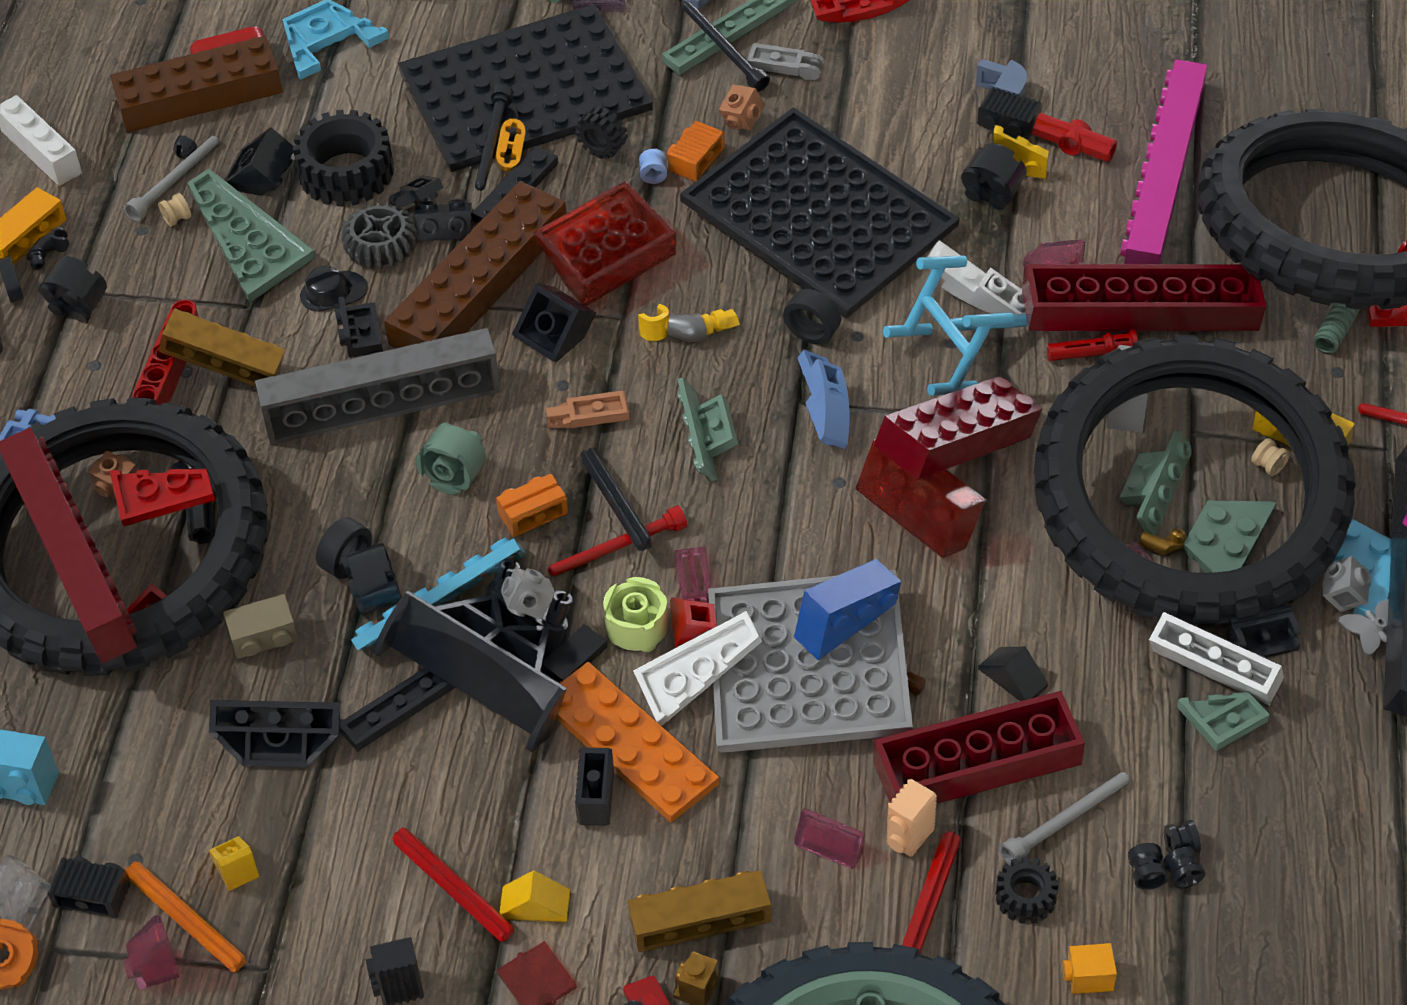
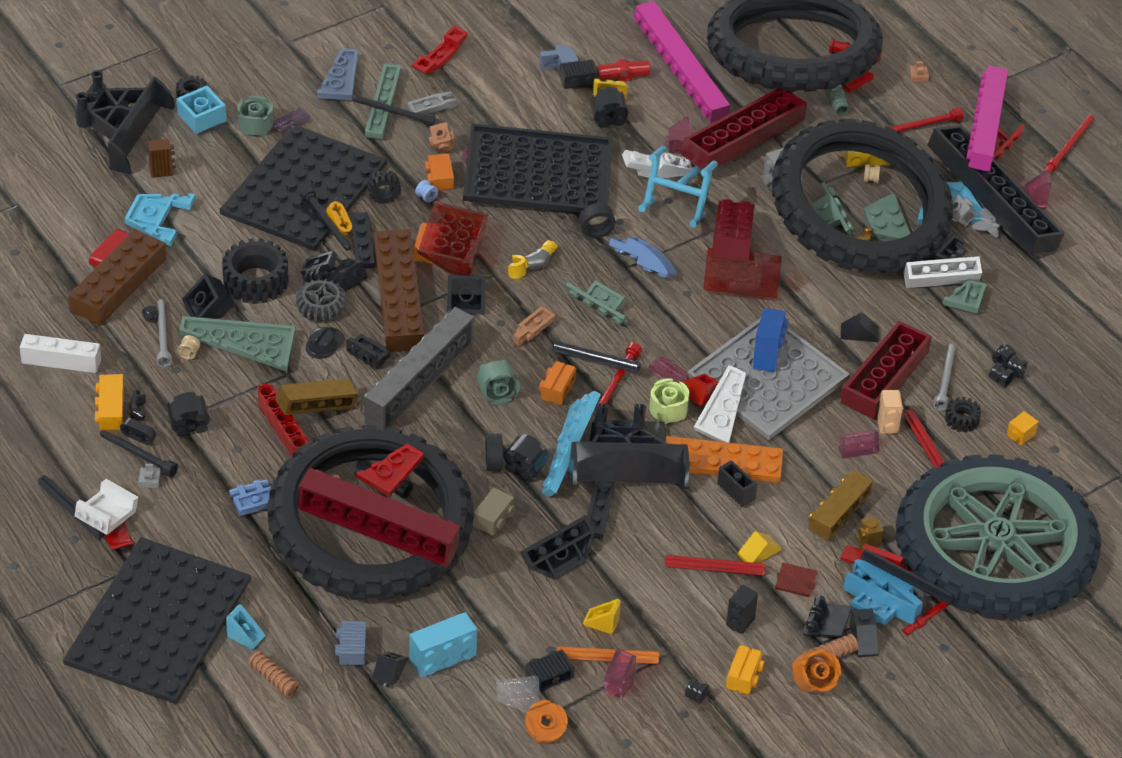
camera: 45 degrees left, 5 degrees down
(527, 593) = (623, 413): light grey brick -> none
(1089, 347) = (745, 162): red pin -> none

